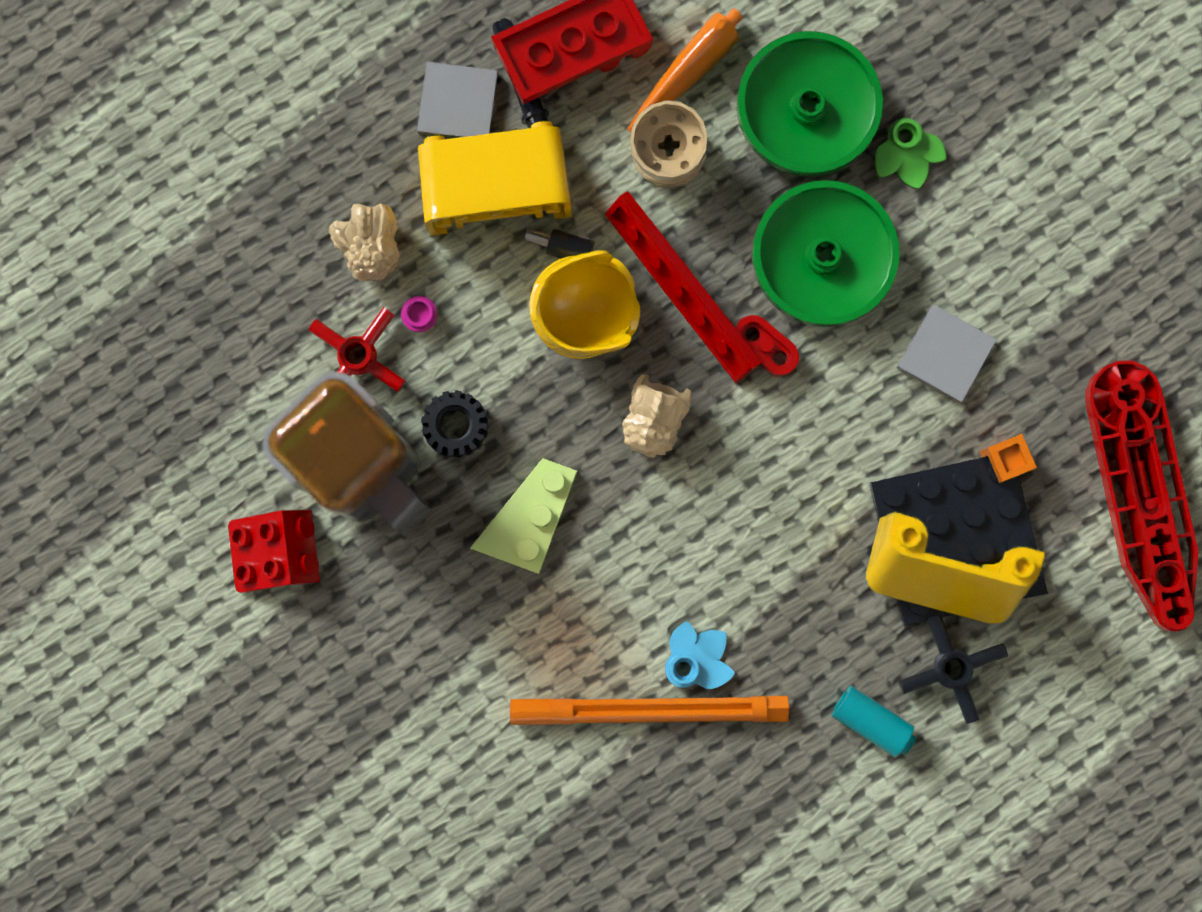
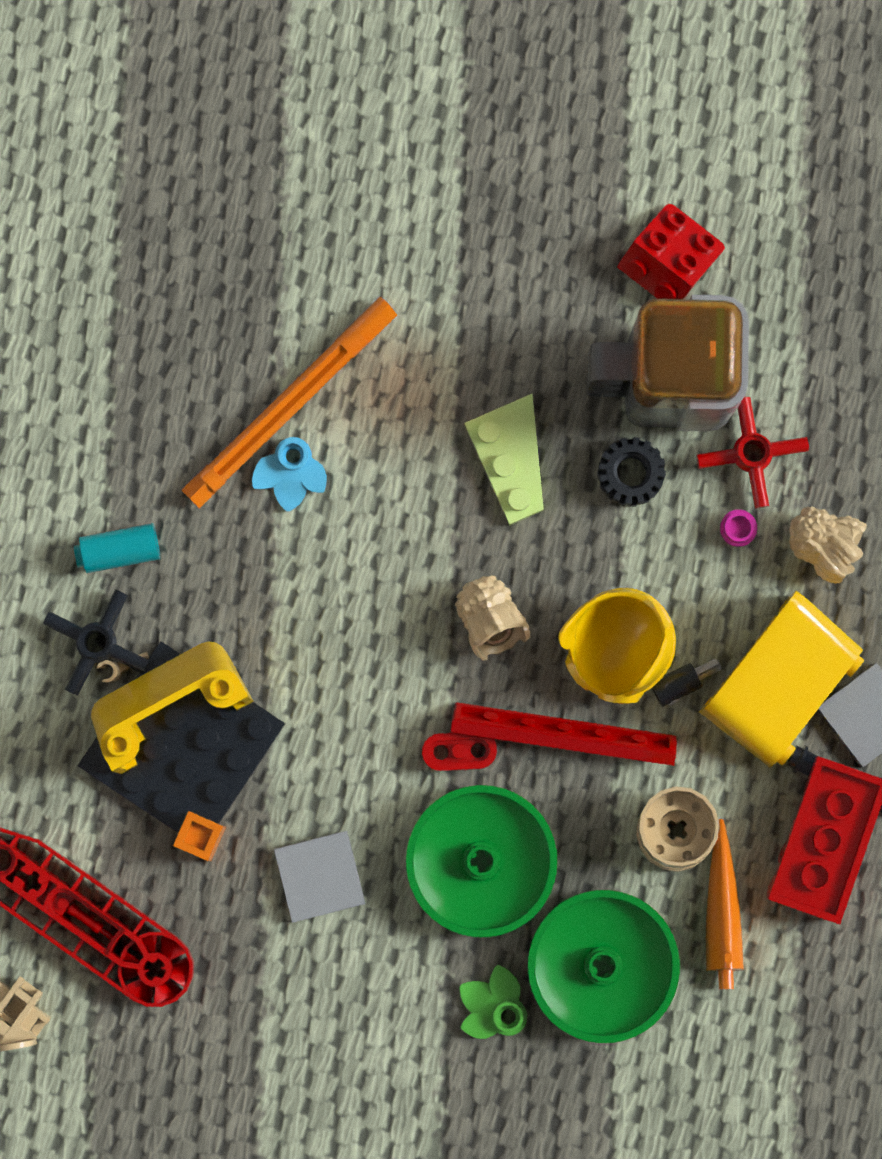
camera: 135 degrees right, 0 degrees up
(953, 635) = (117, 667): none -> tan hand

